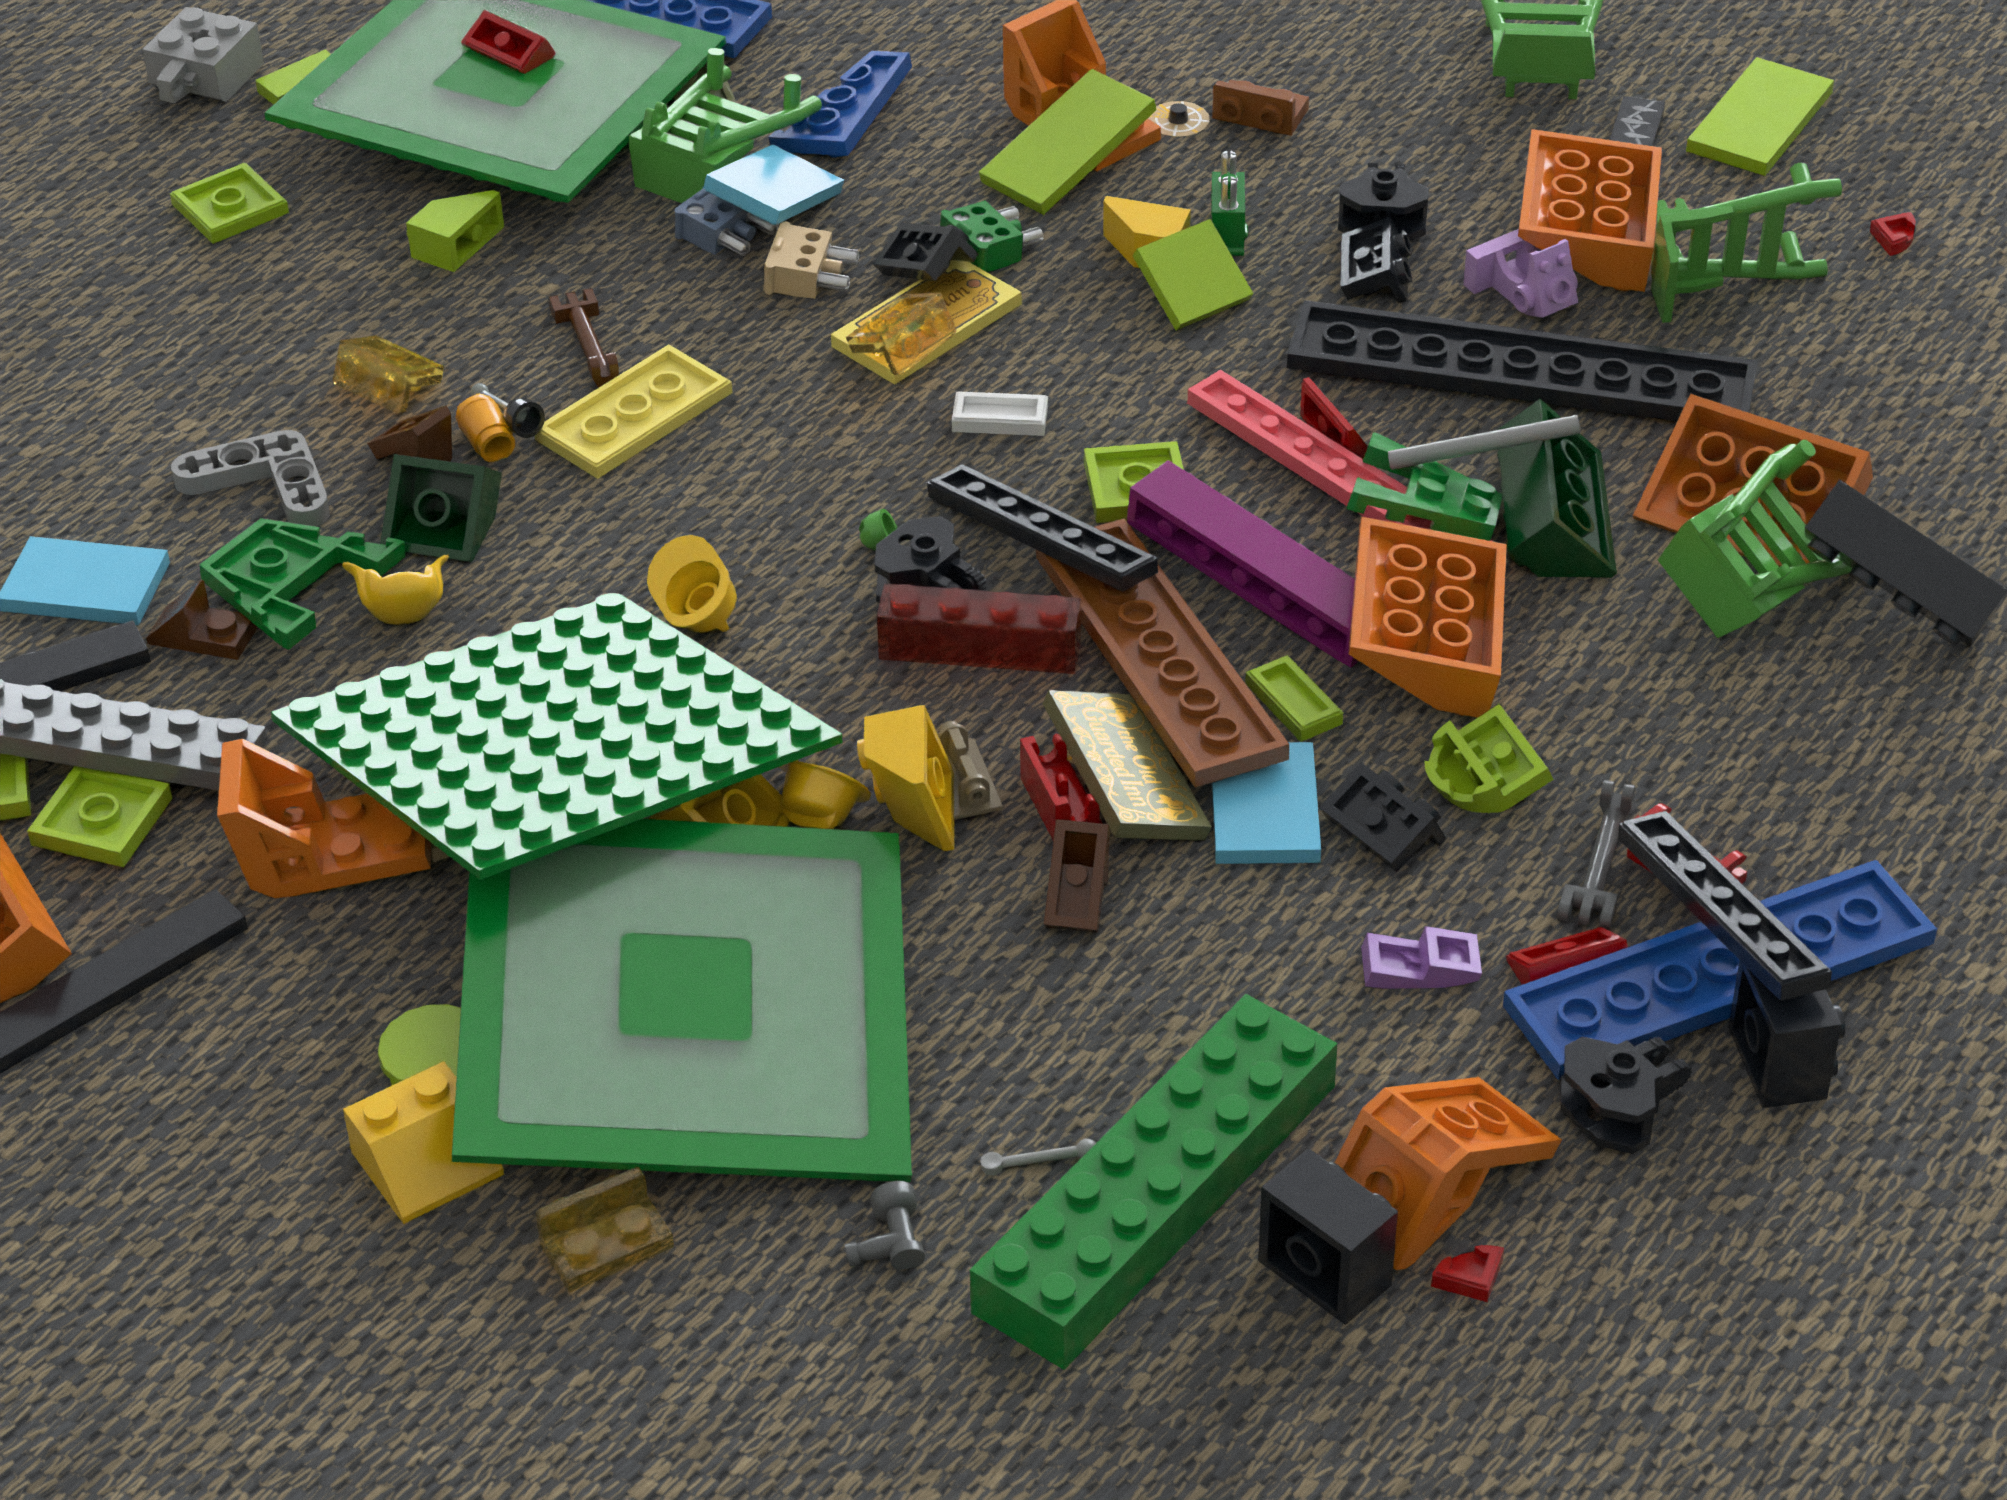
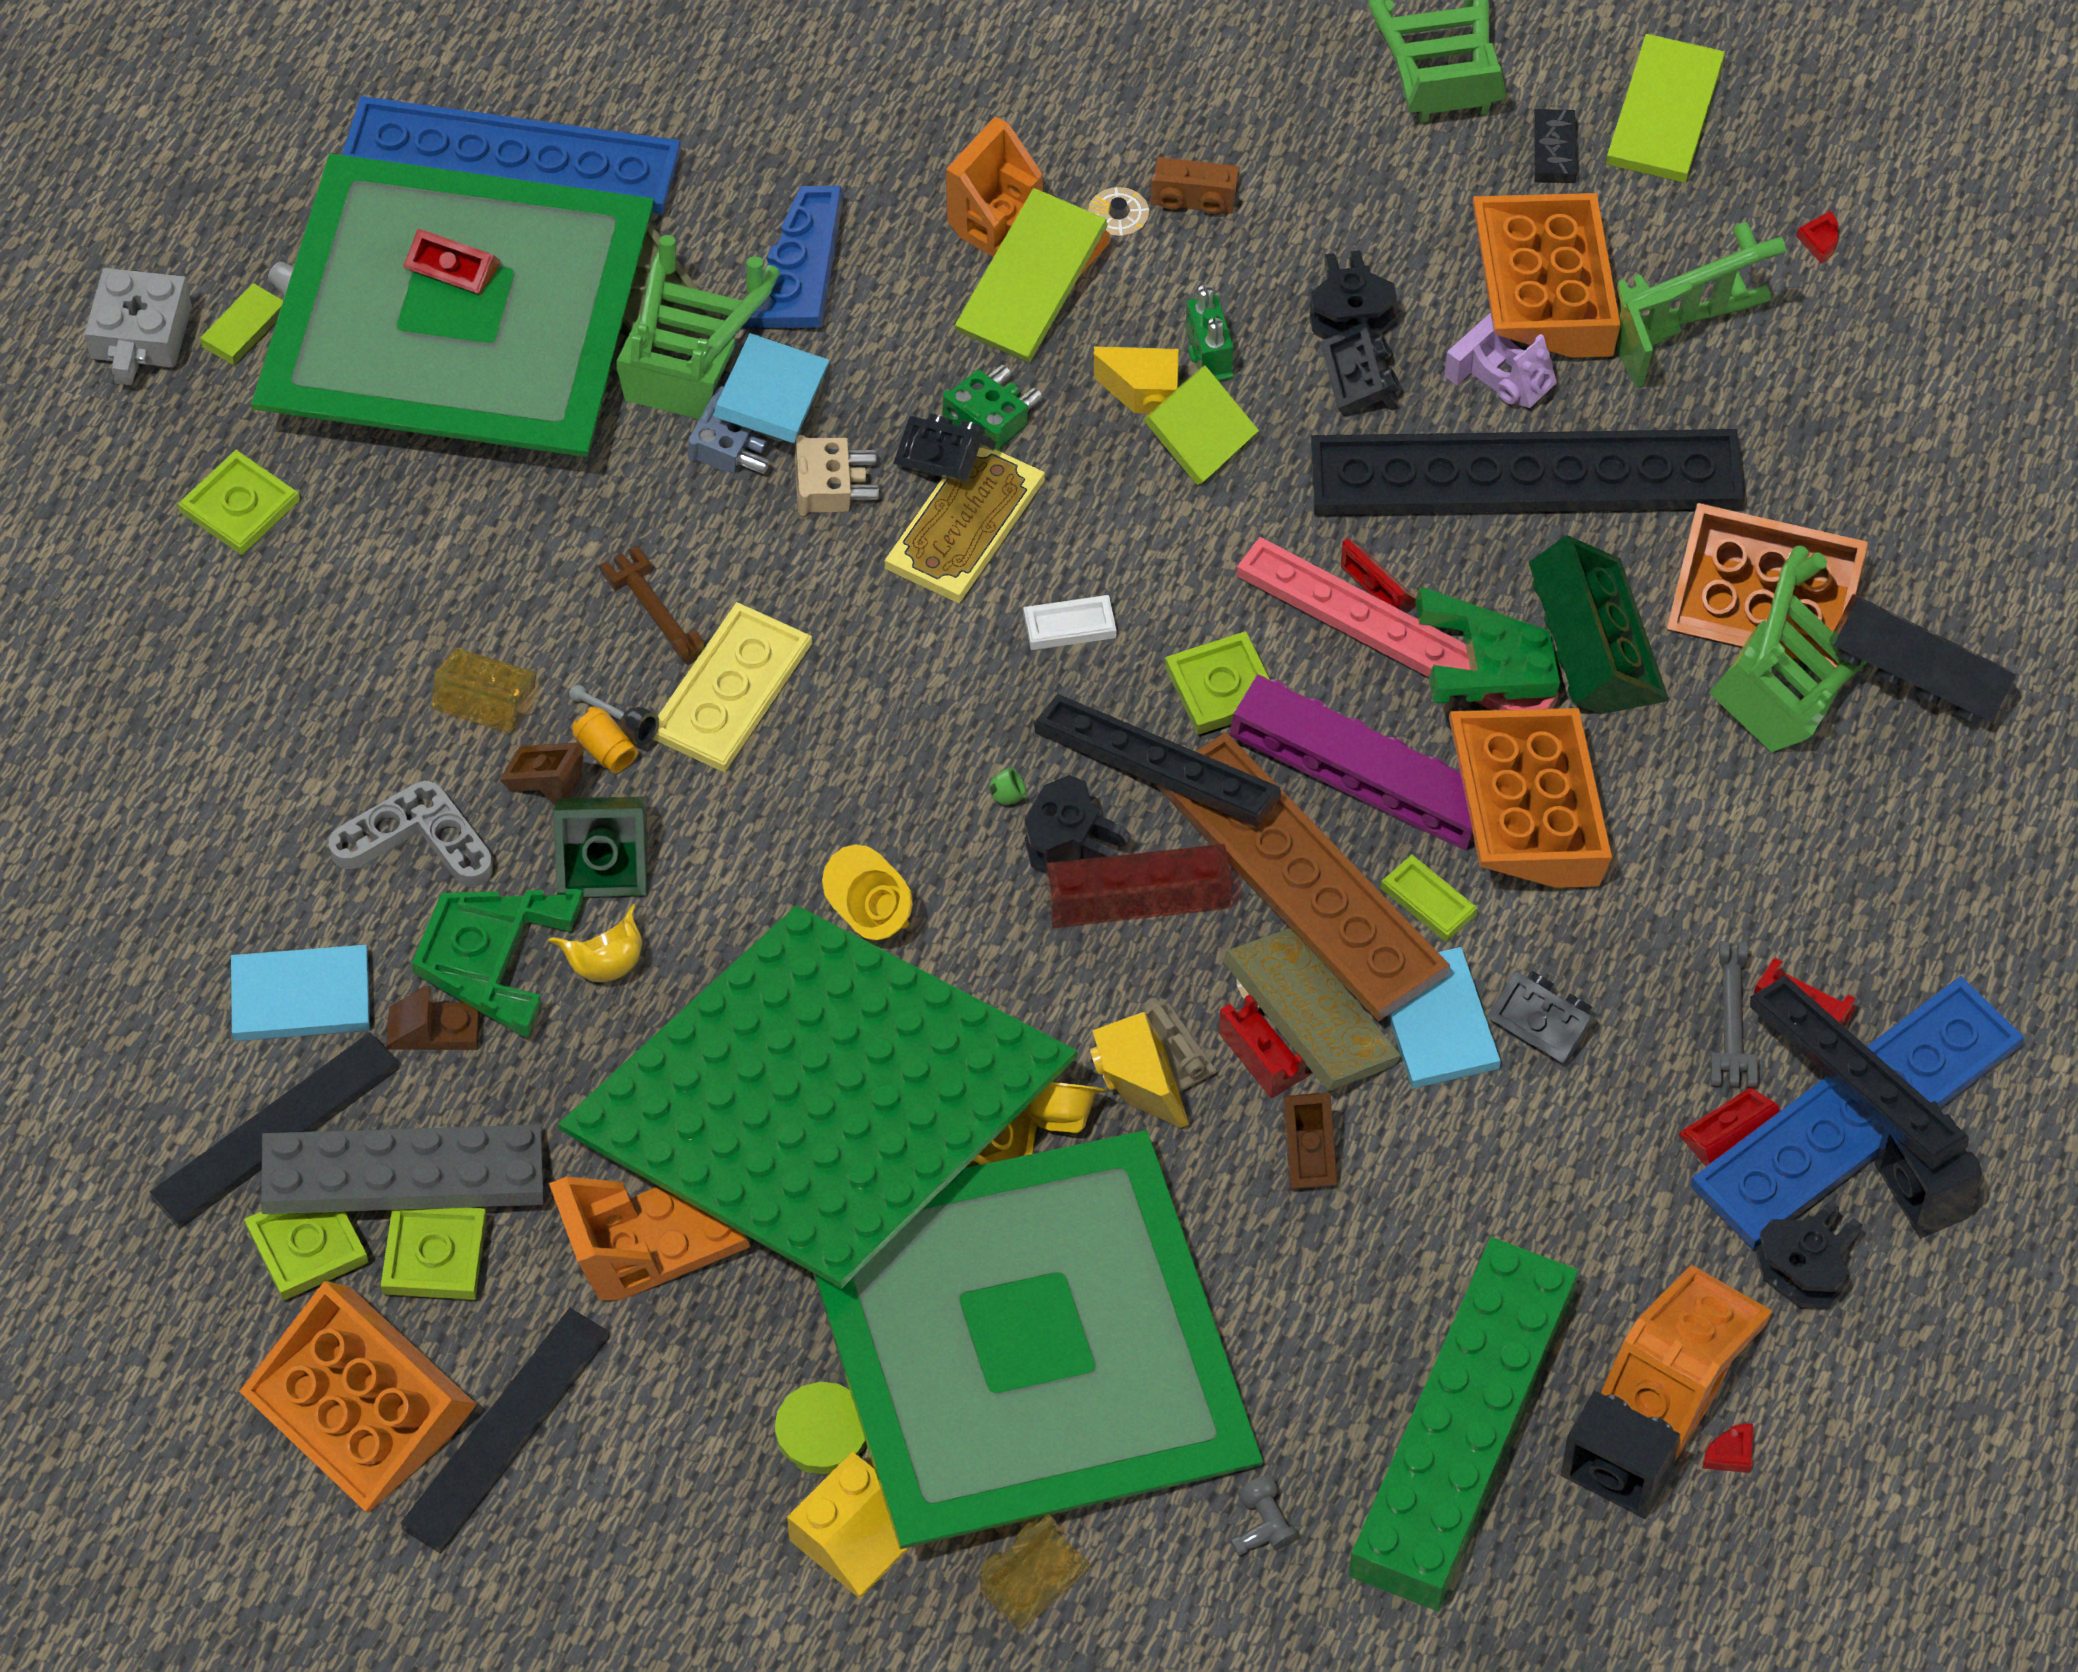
camera: 15 degrees left, 15 degrees up
(454, 228) = (478, 500): lime slope -> none
(905, 331) = (957, 549): clear yellow bracket -> none
(993, 1163) = (1321, 1432): light grey hinge -> none
(1435, 961) = (1617, 1155): medium lavender slope -> none
(1484, 442) = (1529, 594): light grey bar -> none
(1485, 764) = (1613, 939): lime slope -> none

